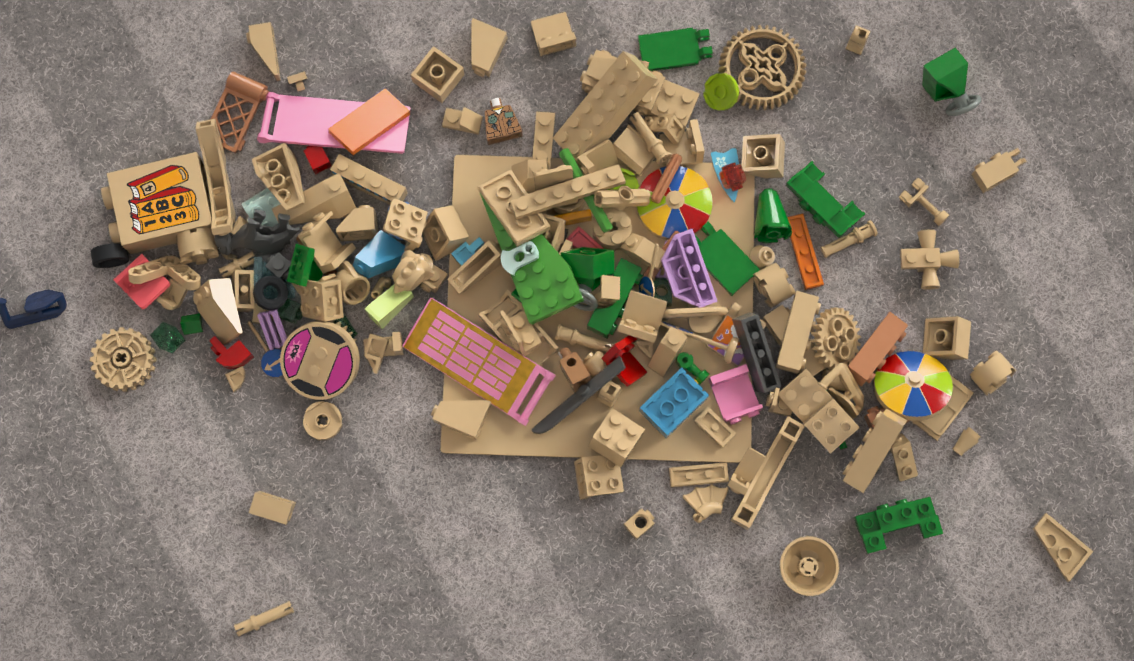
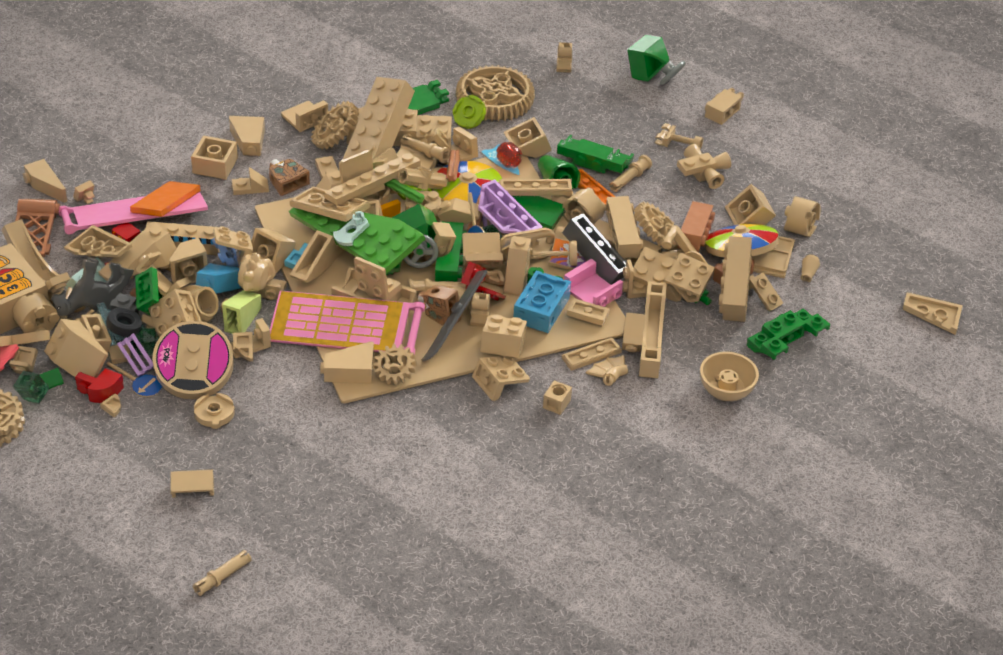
camera: 25 degrees left, 35 degrees down
(498, 427) = (394, 365): none -> tan gear
(566, 83) = (335, 125): none -> tan gear
(735, 241) = (537, 187): none -> tan tile

